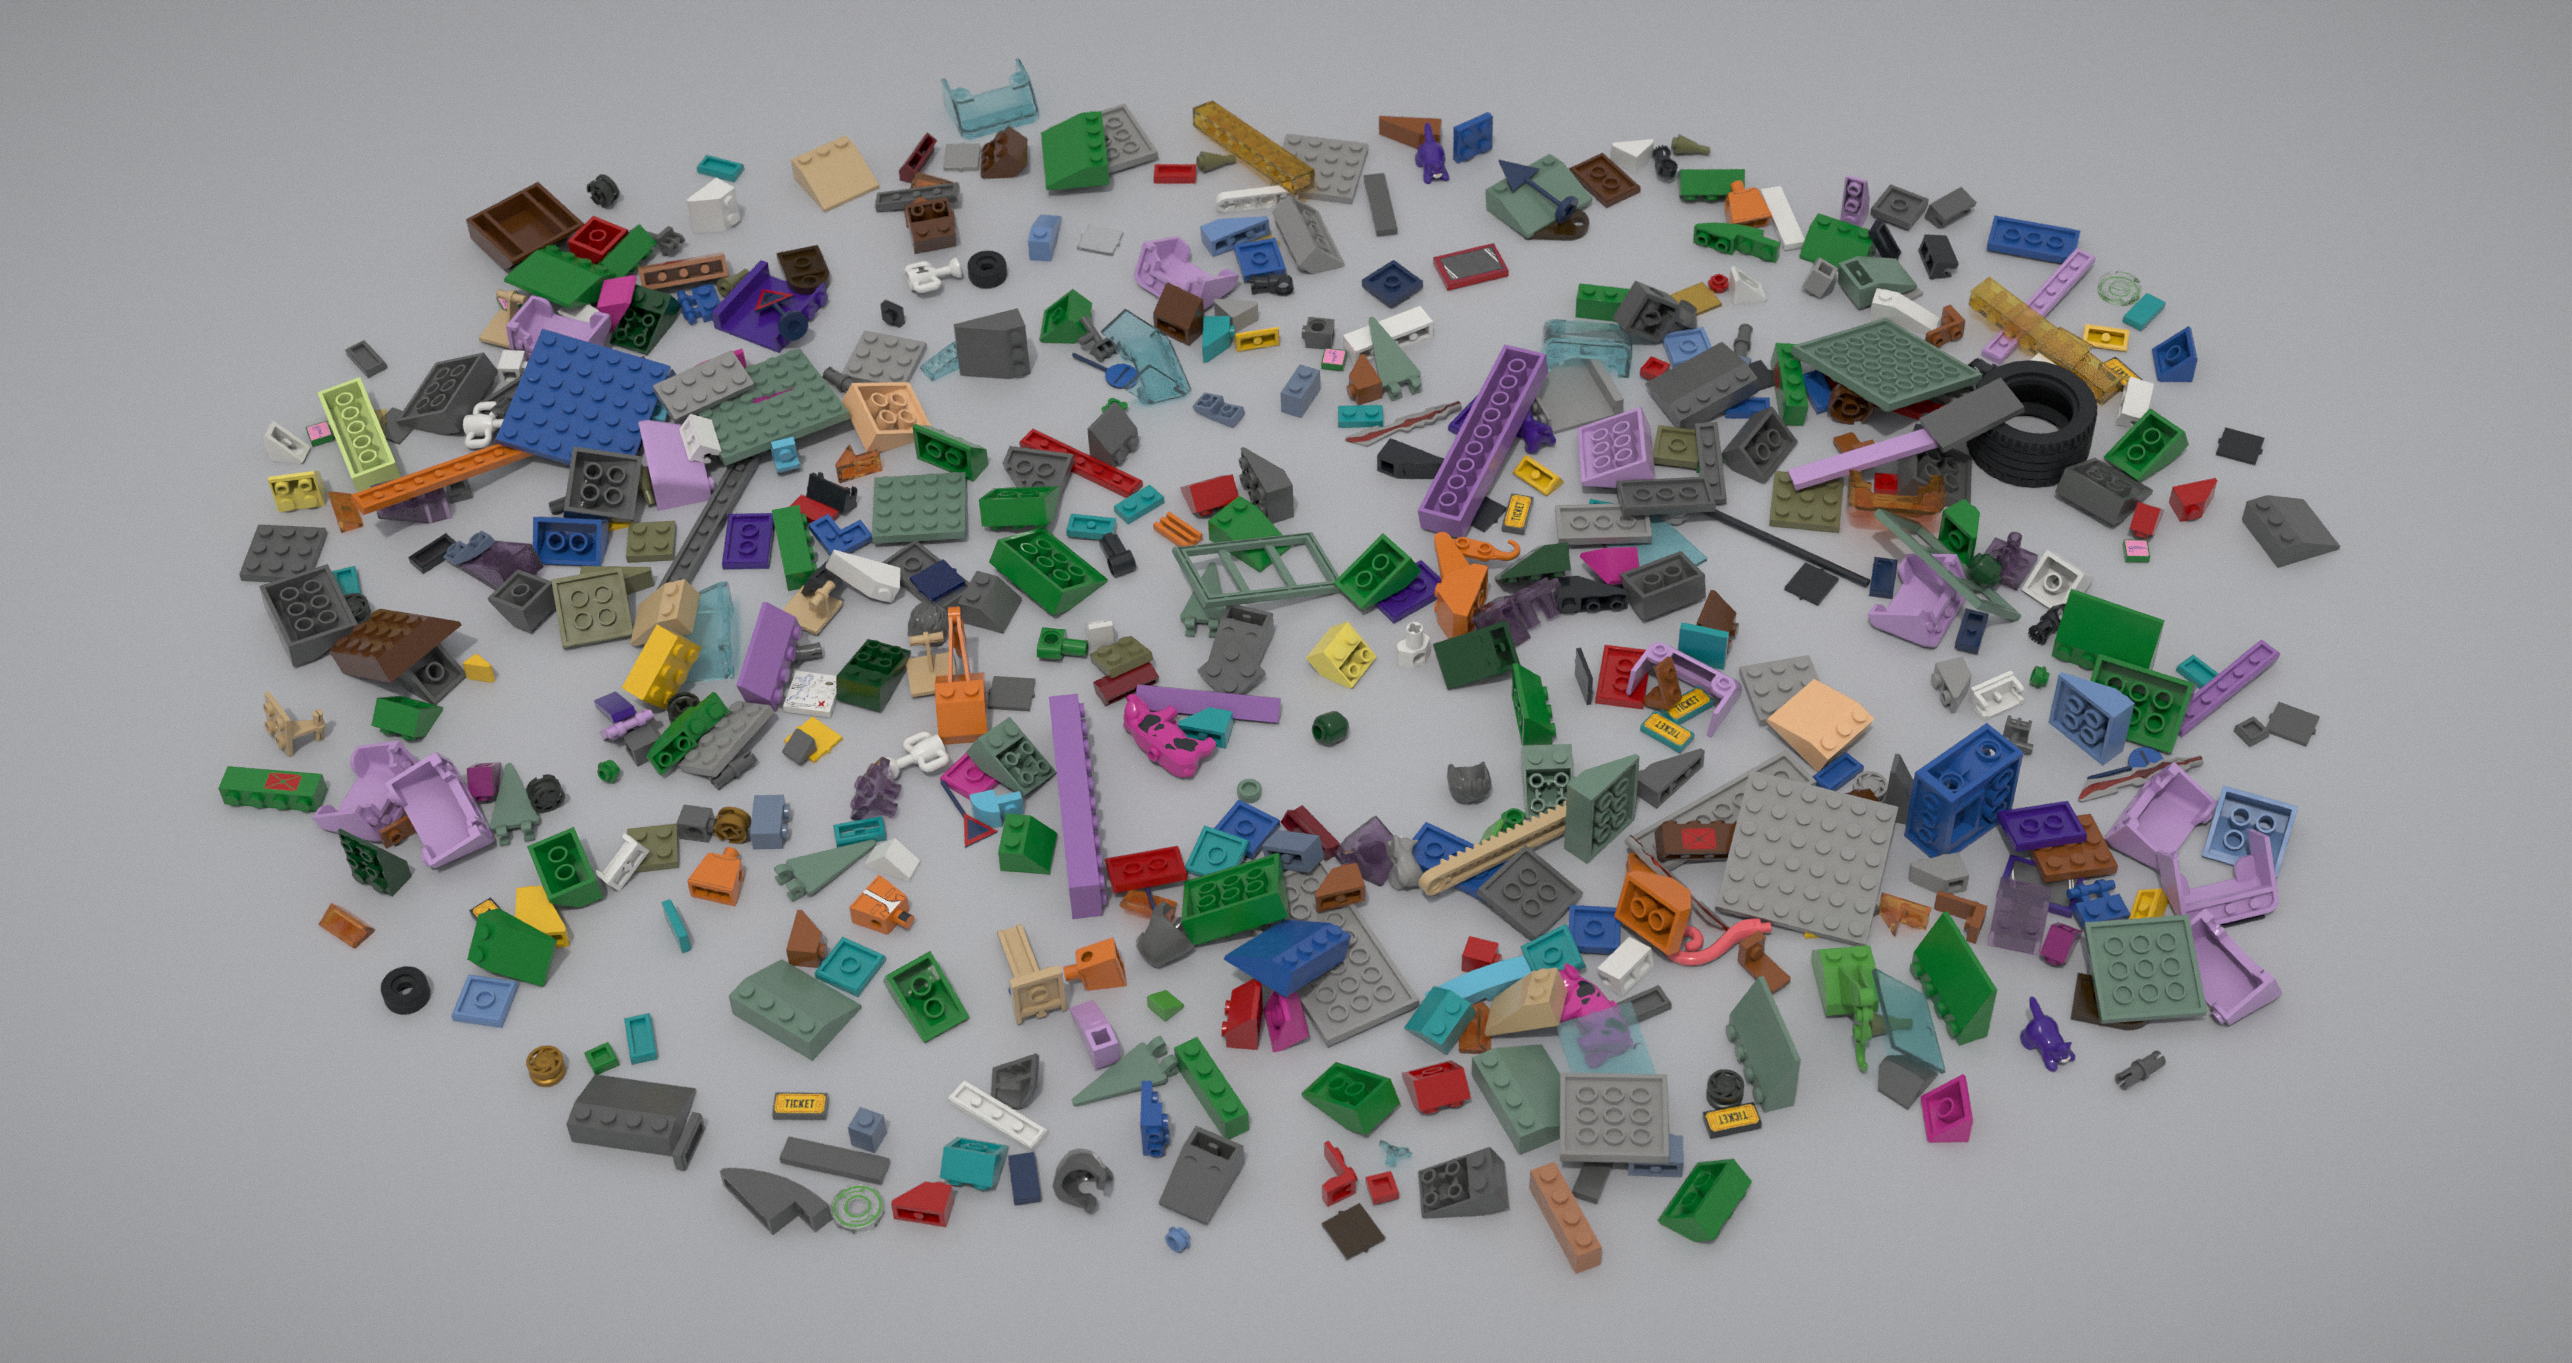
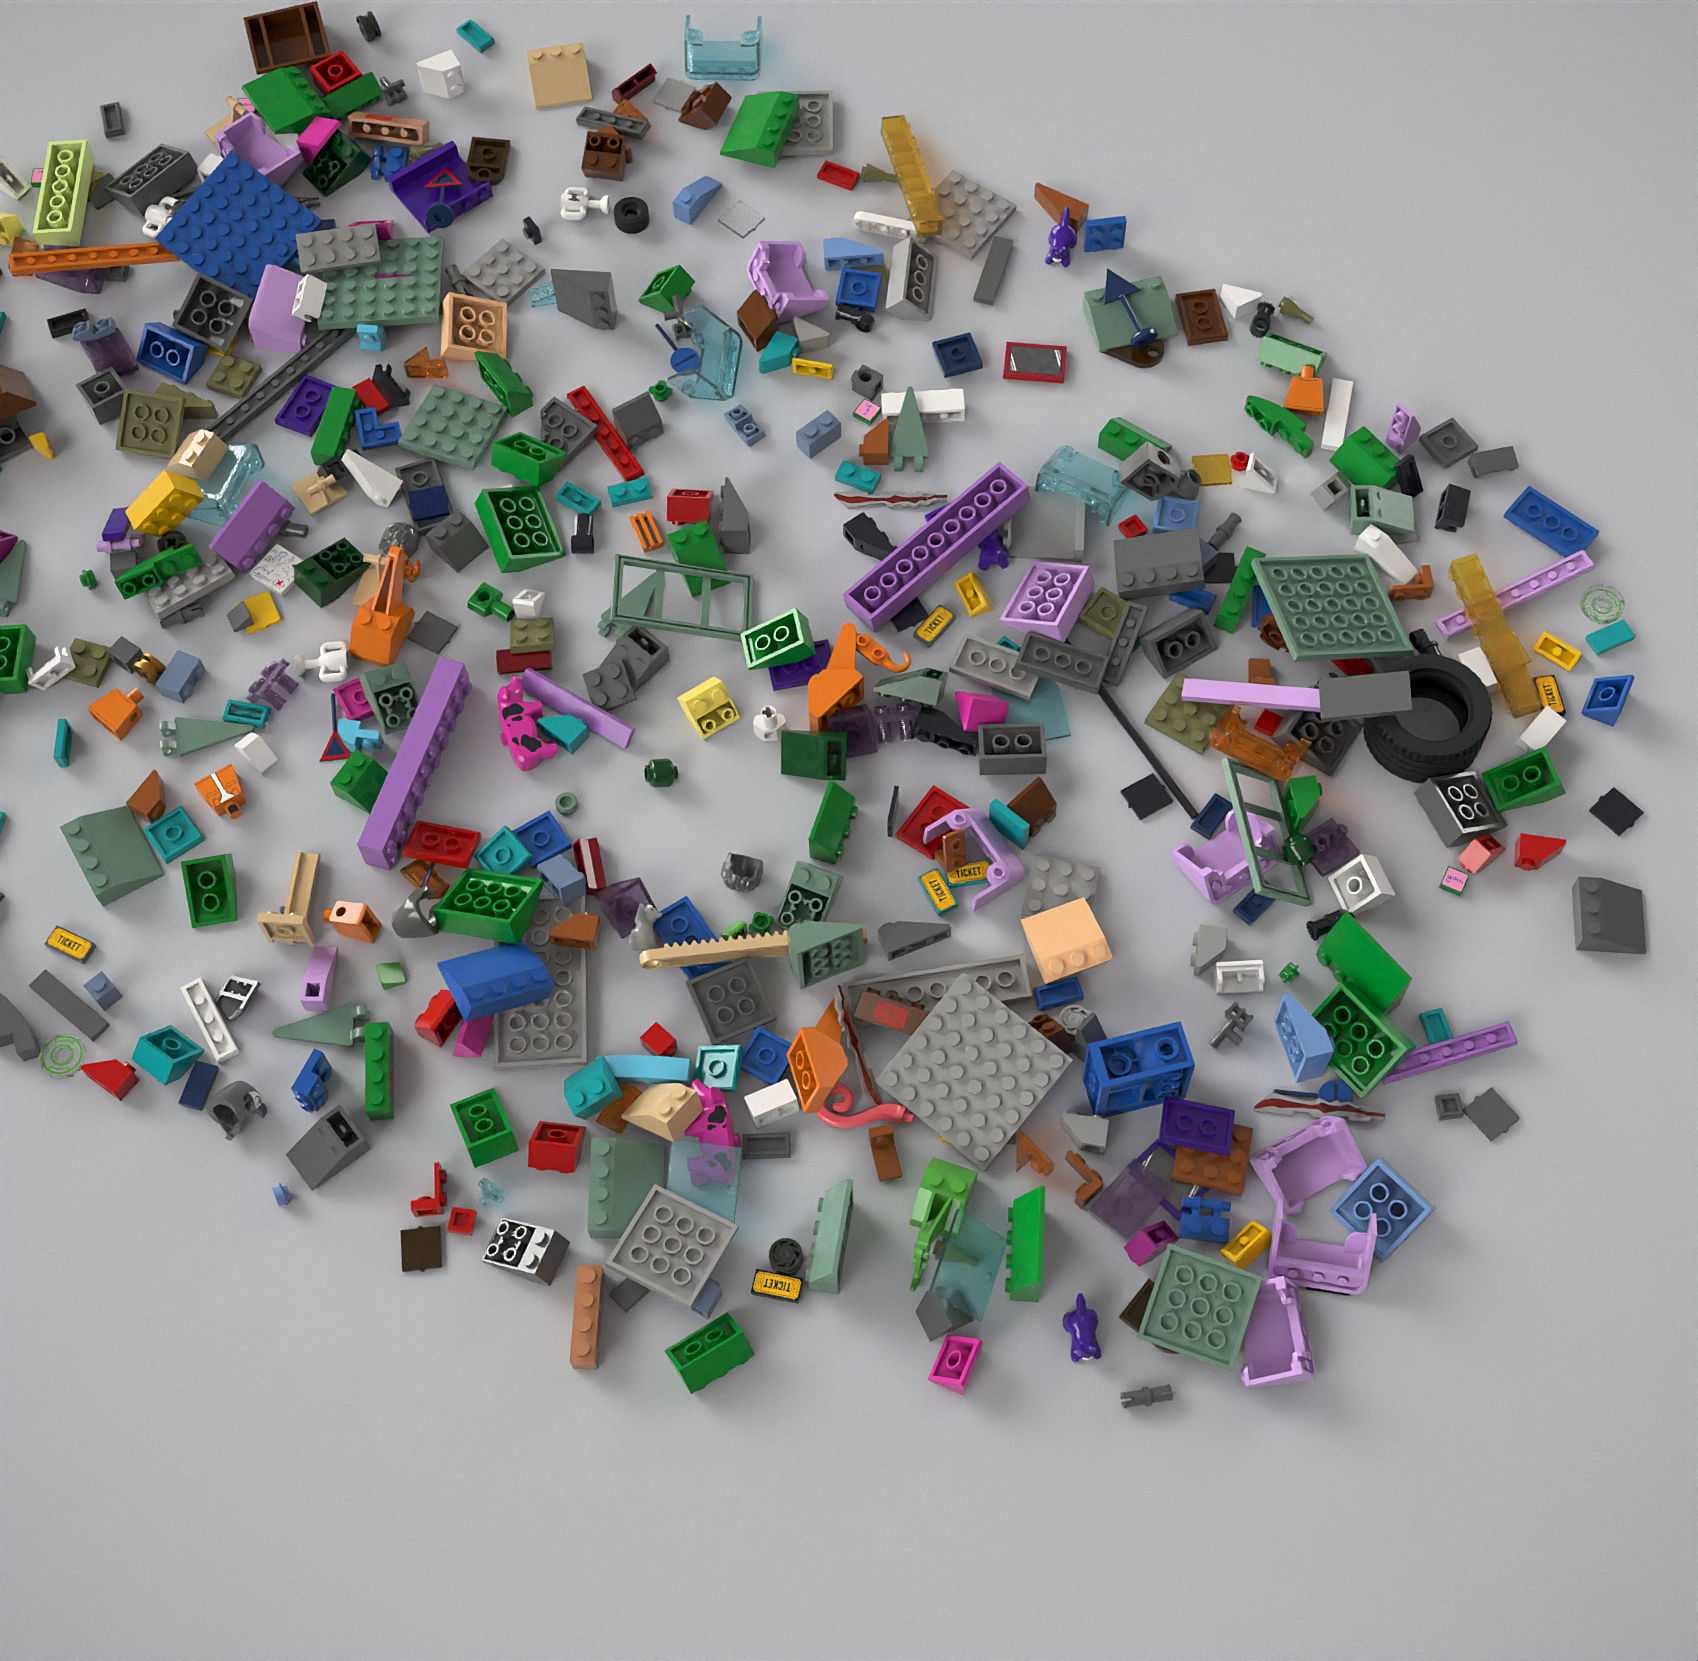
camera: 25 degrees right, 15 degrees up
(545, 793) = (29, 581): pearl dark grey wheel -> none

